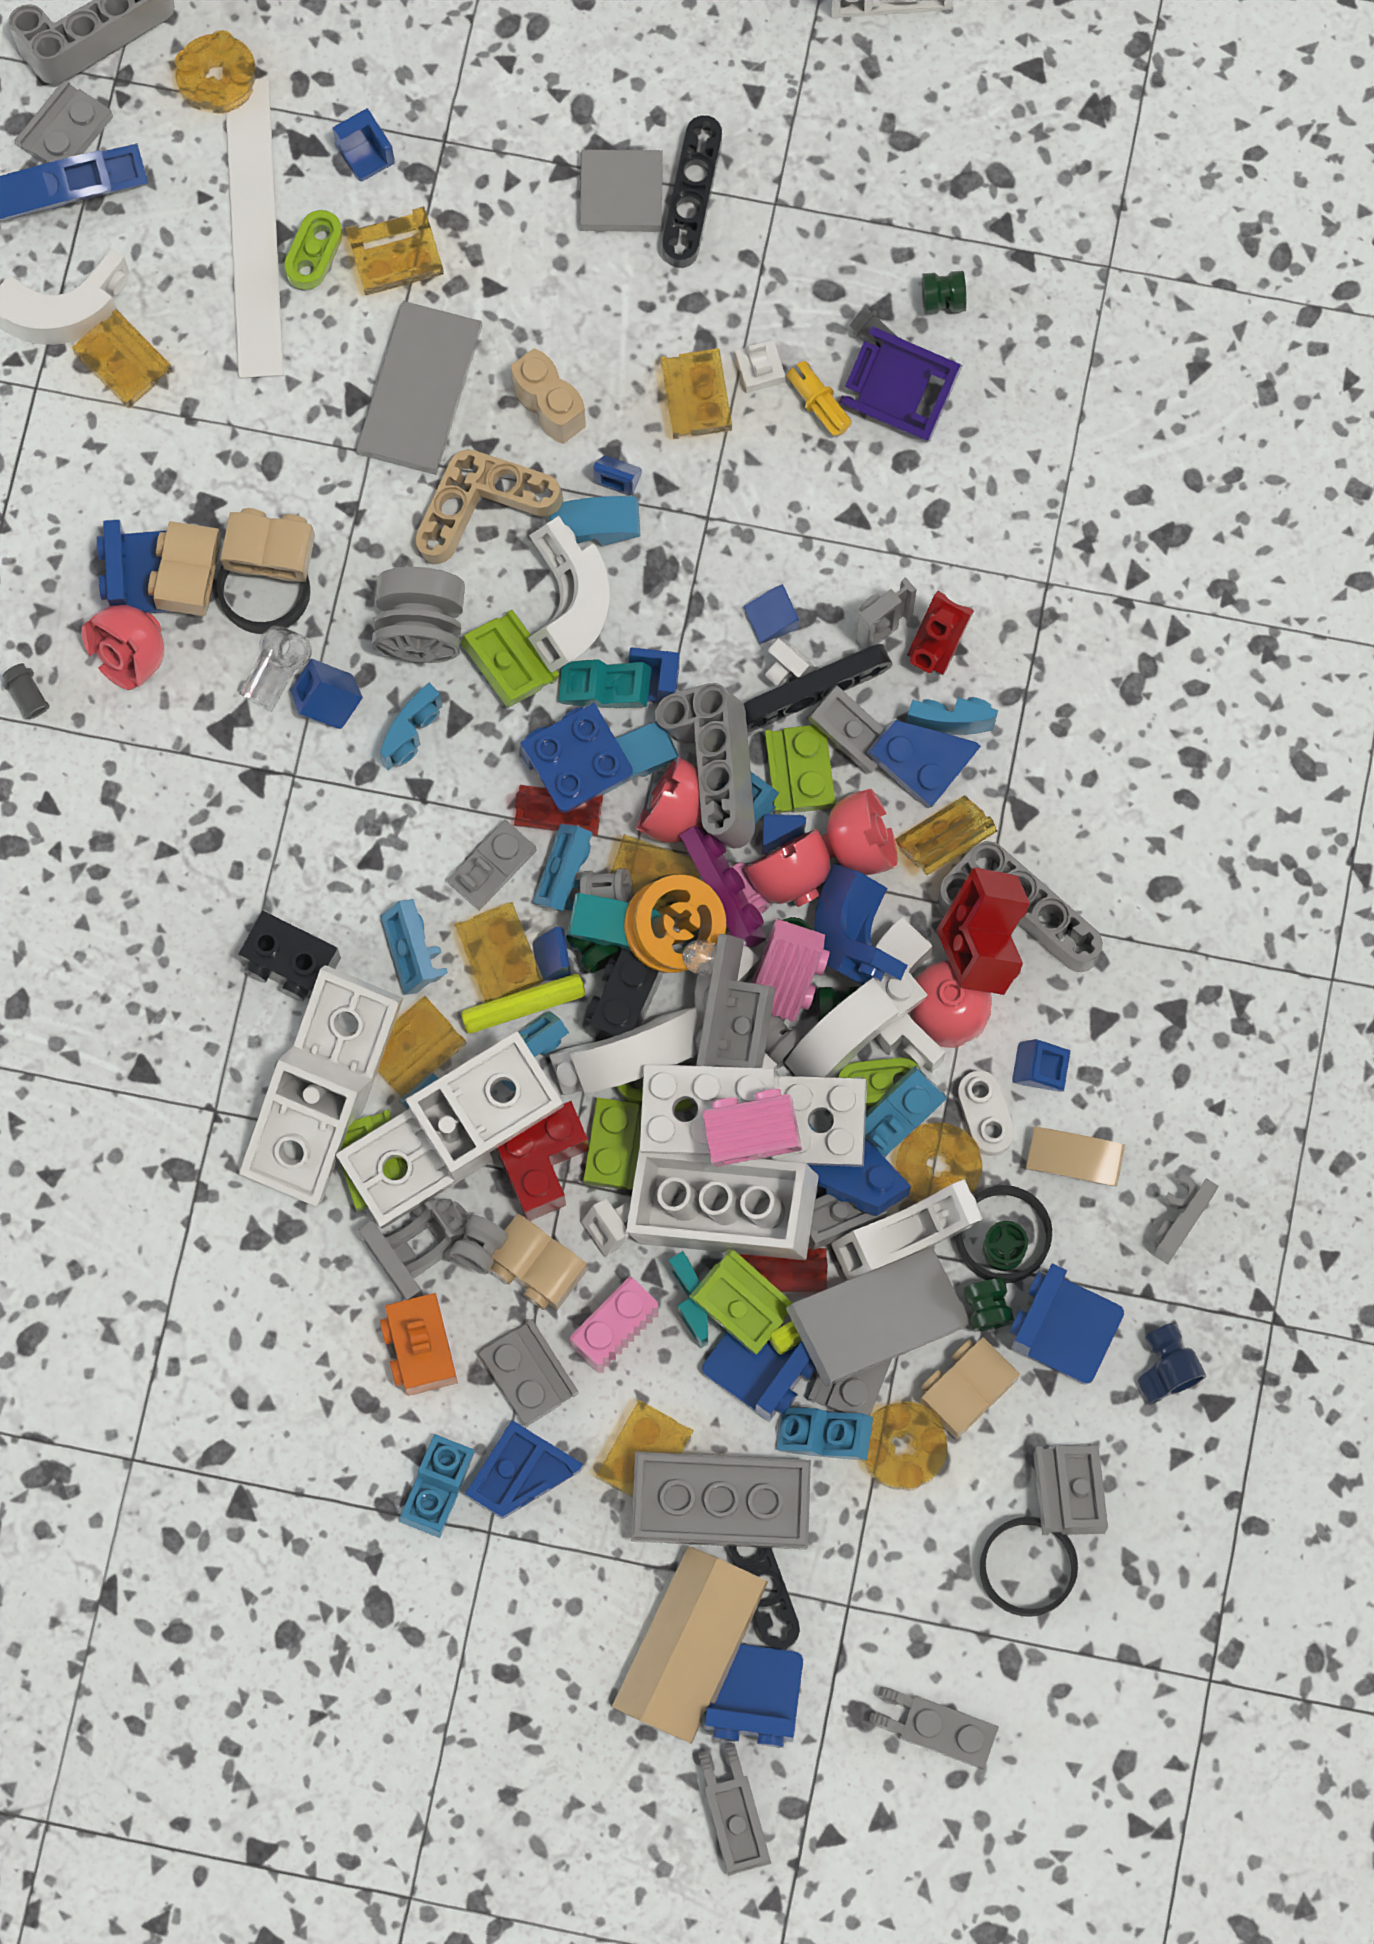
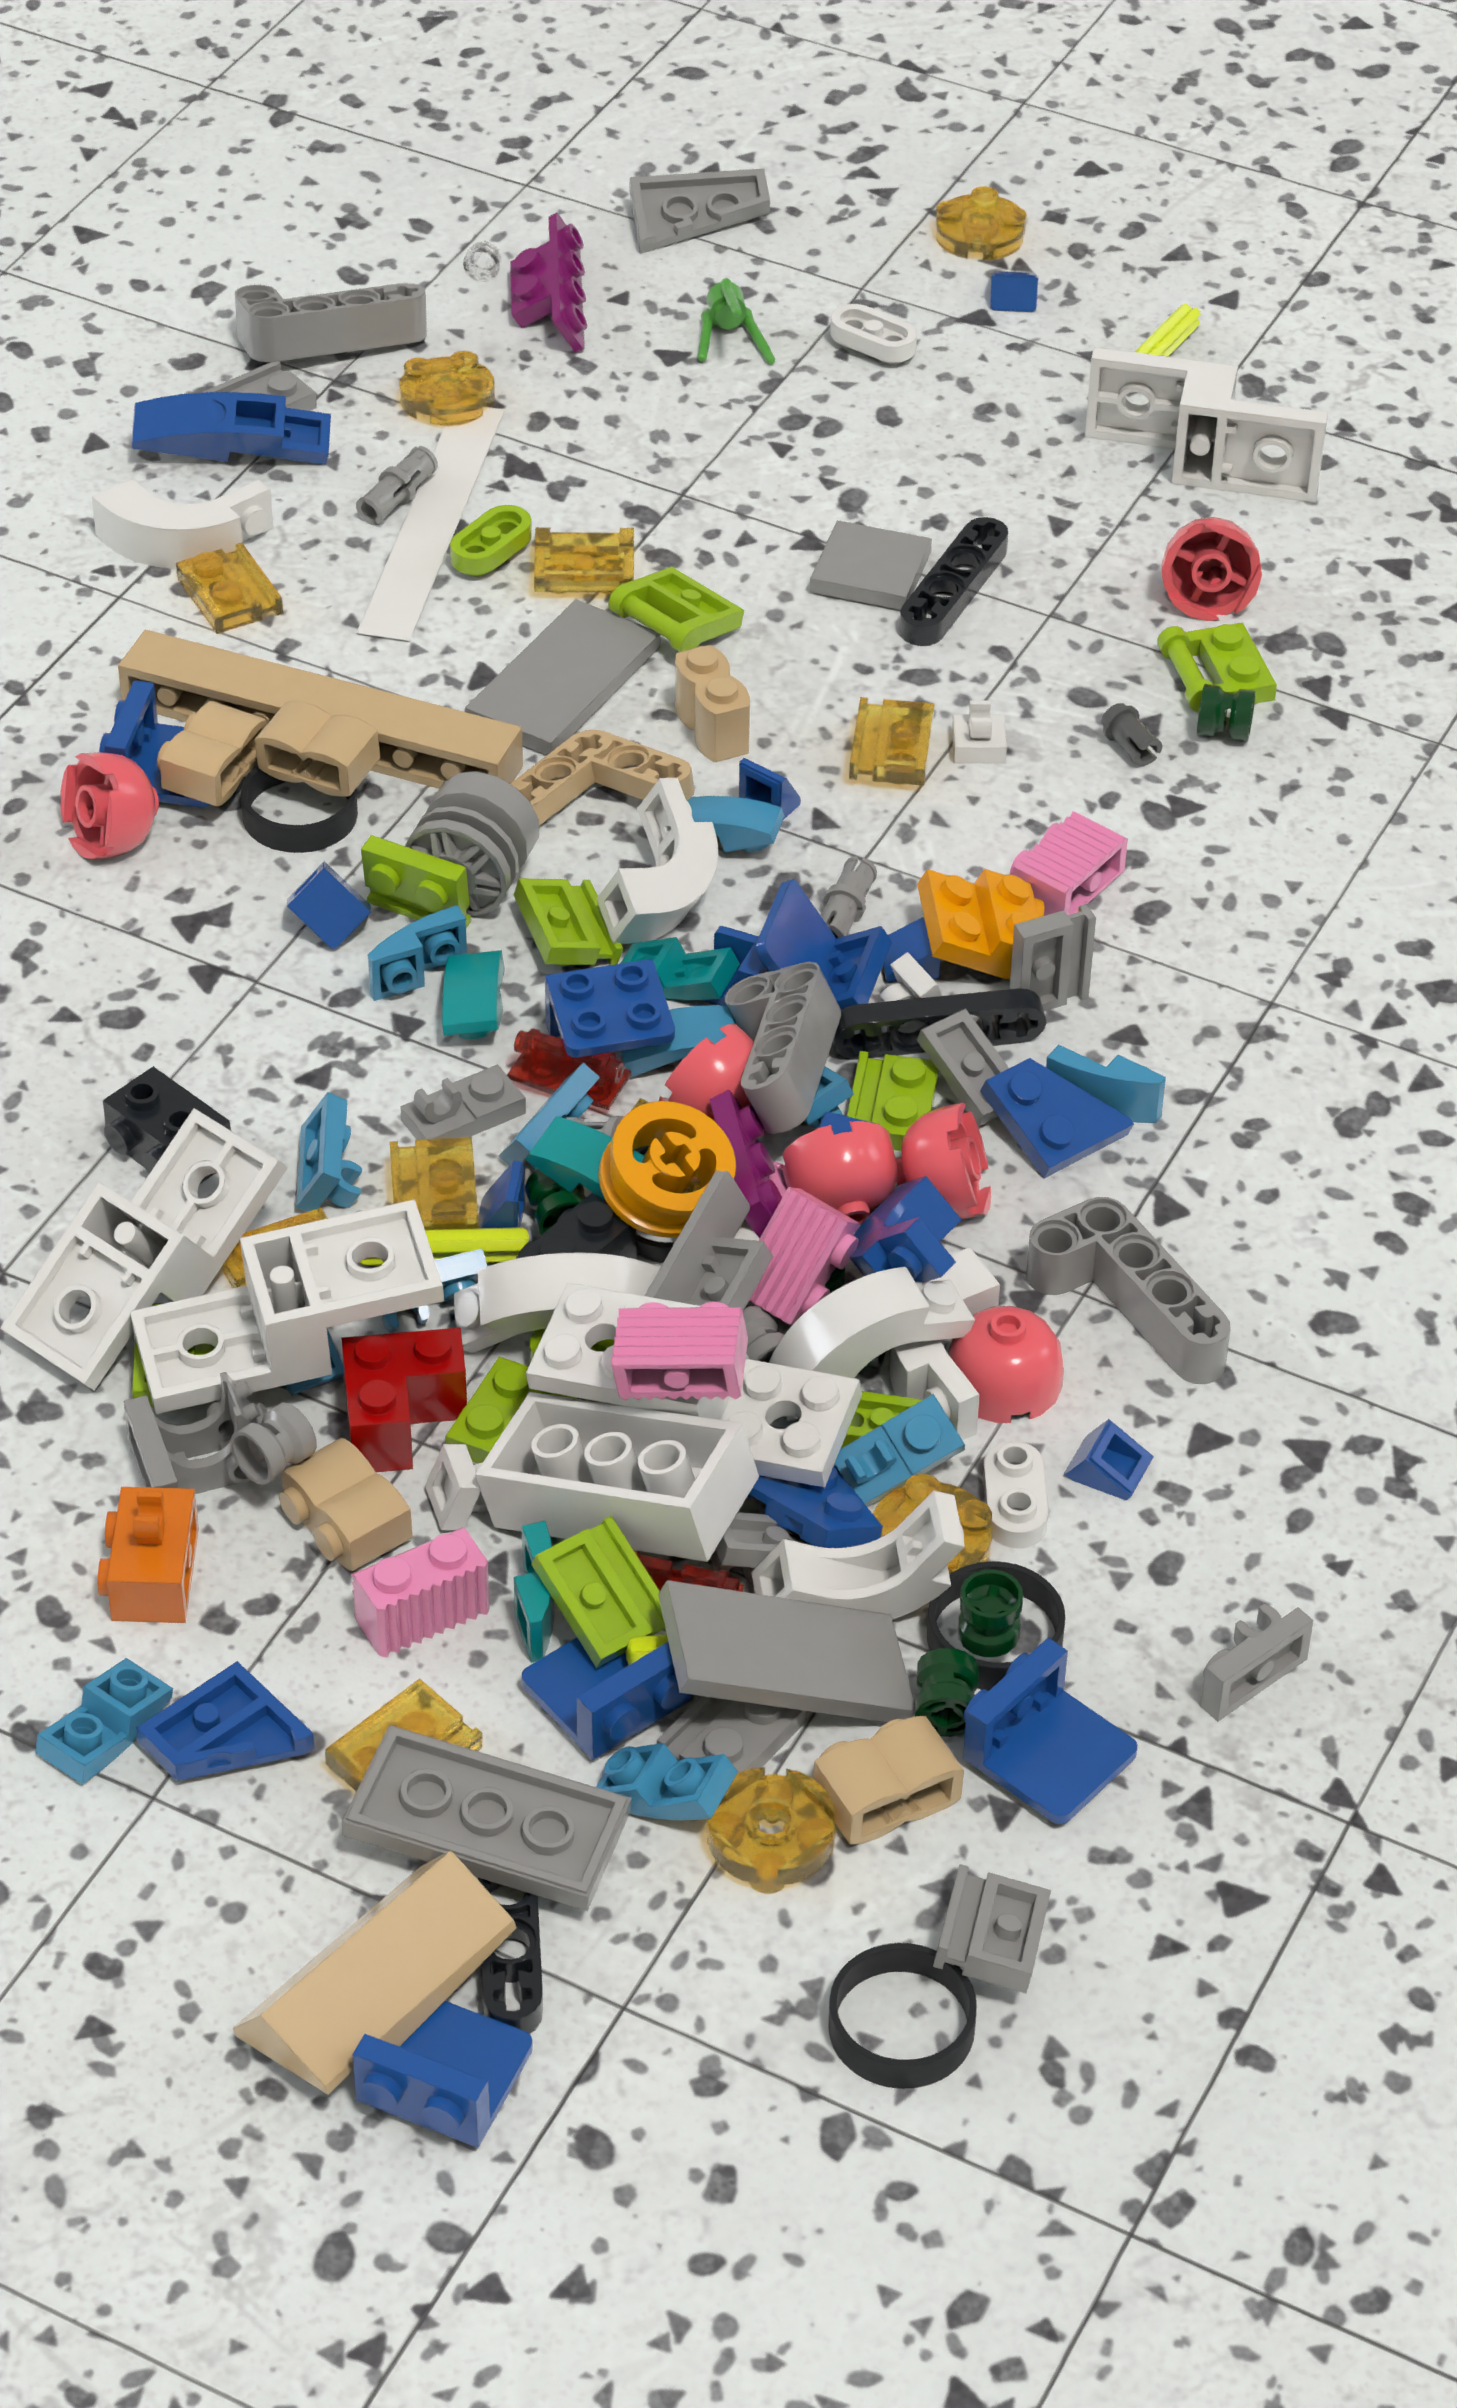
camera: 15 degrees right, 30 degrees down
(213, 488) = (414, 736): none -> tan brick
(215, 204) = (396, 485): none -> light grey pin
(273, 668) = (275, 867): clear piece -> none
(363, 145) = (587, 468): blue panel -> none
(387, 662) = (412, 880): none -> lime plate
(464, 754) = (472, 994): none -> teal slope
(493, 283) = (676, 608): none -> lime plate
(528, 1373) = (284, 1627): light grey plate -> none
(699, 956) = (683, 1188): clear hinge -> none
(709, 577) = (846, 898): none -> light grey pin
(715, 651) = (799, 935): none -> blue bracket
(734, 1815) = (355, 2214): light grey hinge -> none
(819, 399) = (1040, 774): yellow axle -> none
(821, 580) = (976, 920): none -> light orange plate
(867, 498) = (1072, 863): none -> bright pink brick
(894, 135) = (1211, 568): none -> coral cylinder
(895, 380) = (1140, 772): dark purple container -> none
(931, 225) = (1227, 656): none -> lime plate
(938, 1728) = (697, 2182): light grey hinge -> none
(939, 634) = (1116, 997): red hips -> none
(946, 835) = (1031, 1199): clear yellow plate -> none
(980, 929) = (1073, 1266): red brick -> none
(1075, 1156) = (1130, 1558): tan slope -> none
(1176, 1368) = (1193, 1829): dark blue piece -> none

